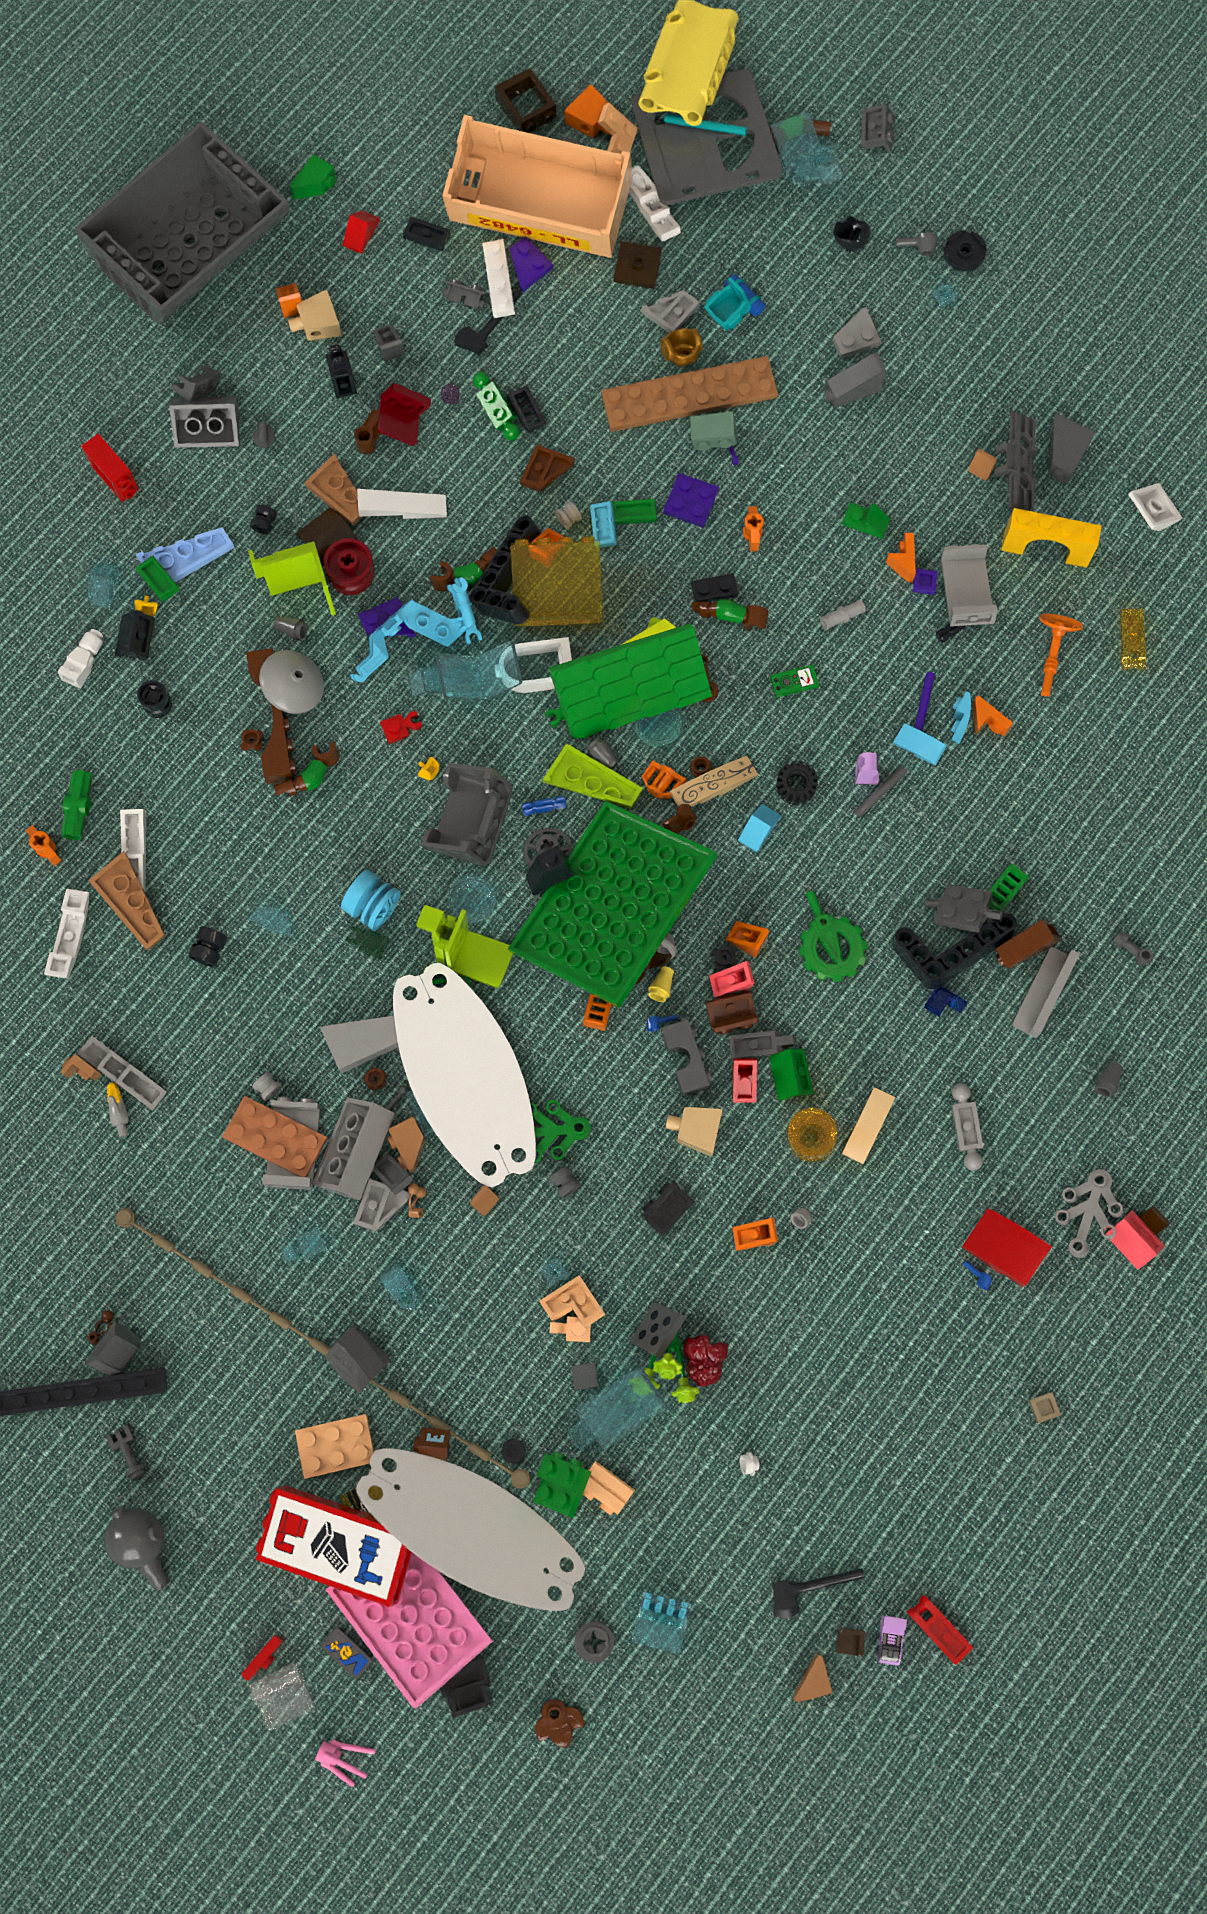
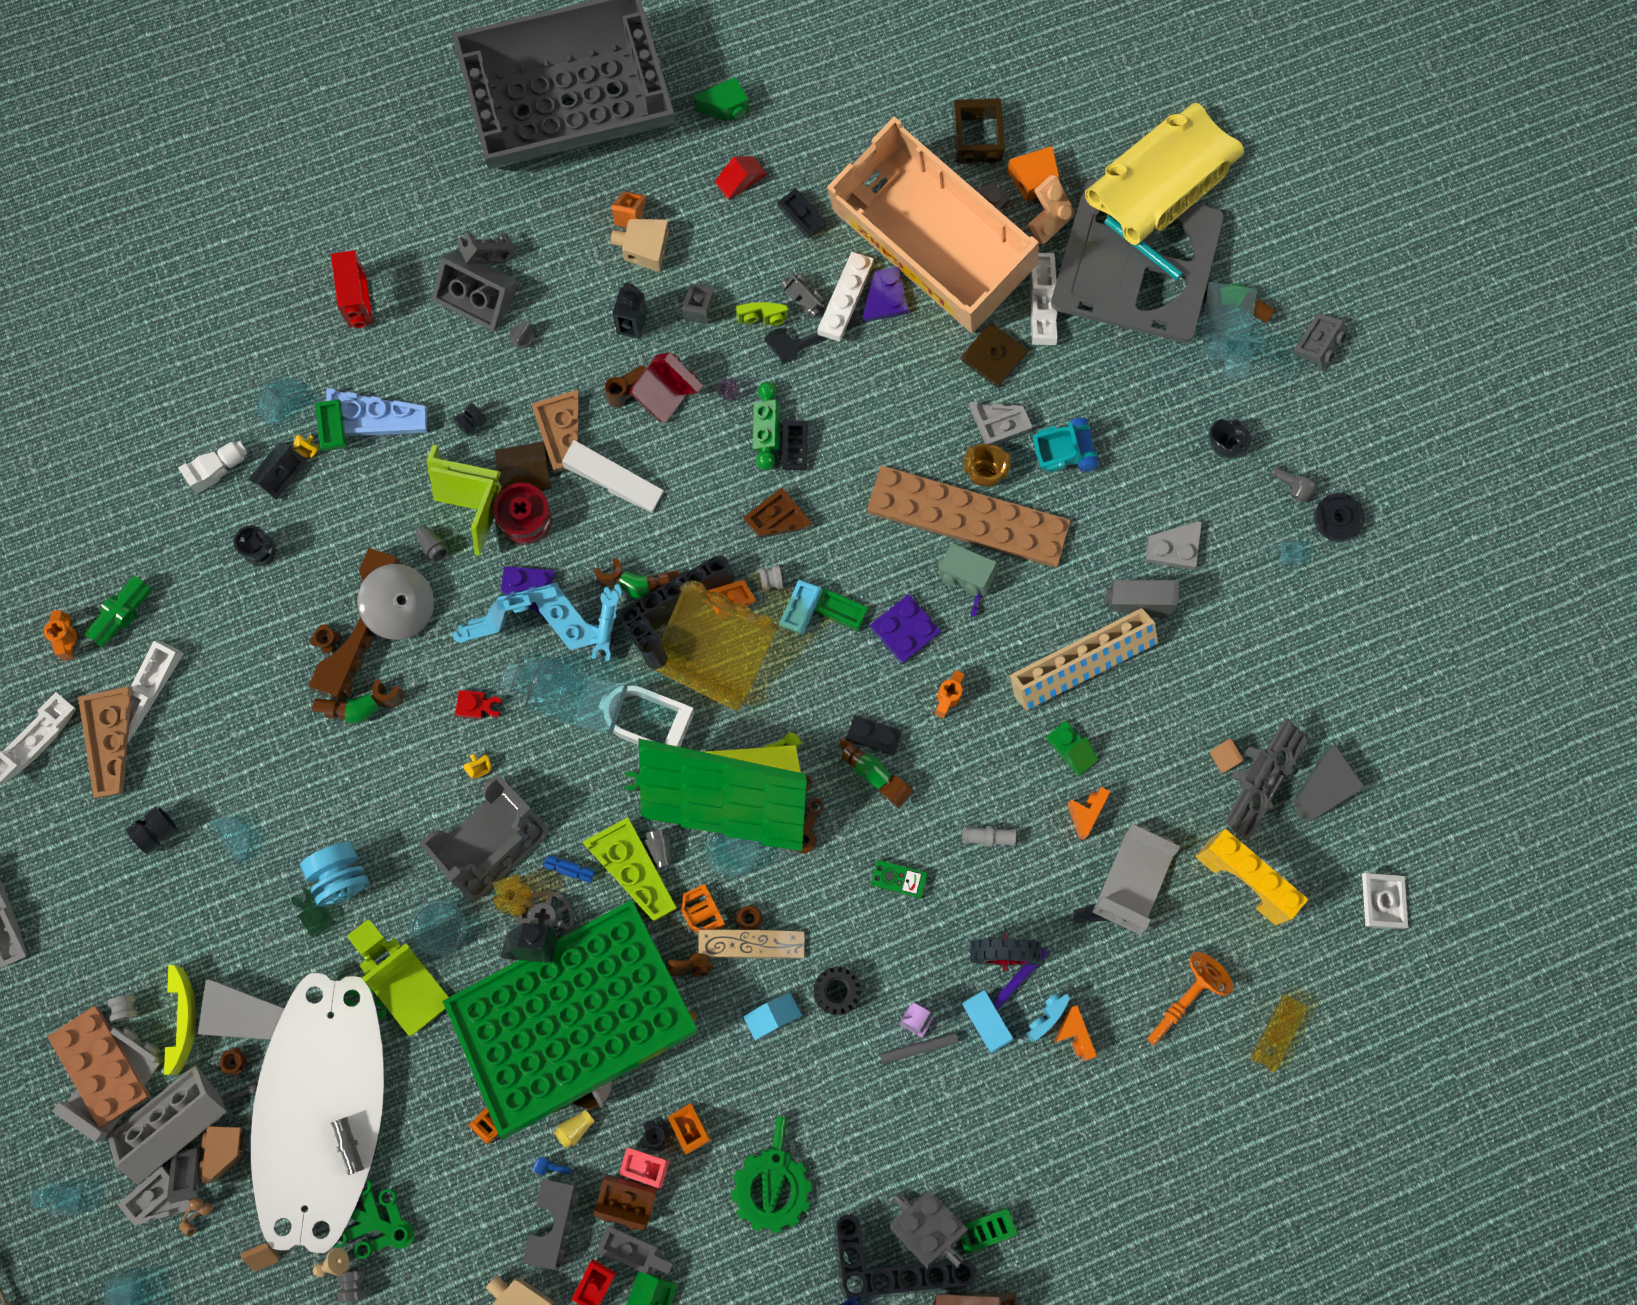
camera: 25 degrees right, 0 degrees up
(329, 1093) = (186, 1020): none -> neon yellow slope
(446, 320) = (771, 313): none -> lime slope
(502, 1084) = (347, 1146): none -> dark grey pin
(514, 845) = (505, 889): none -> clear yellow brick
(544, 1171) = (335, 1263): none -> tan piece
(838, 449) = (1084, 659): none -> tan brick
(905, 684) = (1005, 952): none -> black wheel
(925, 581) = (1094, 848): dark purple plate -> none

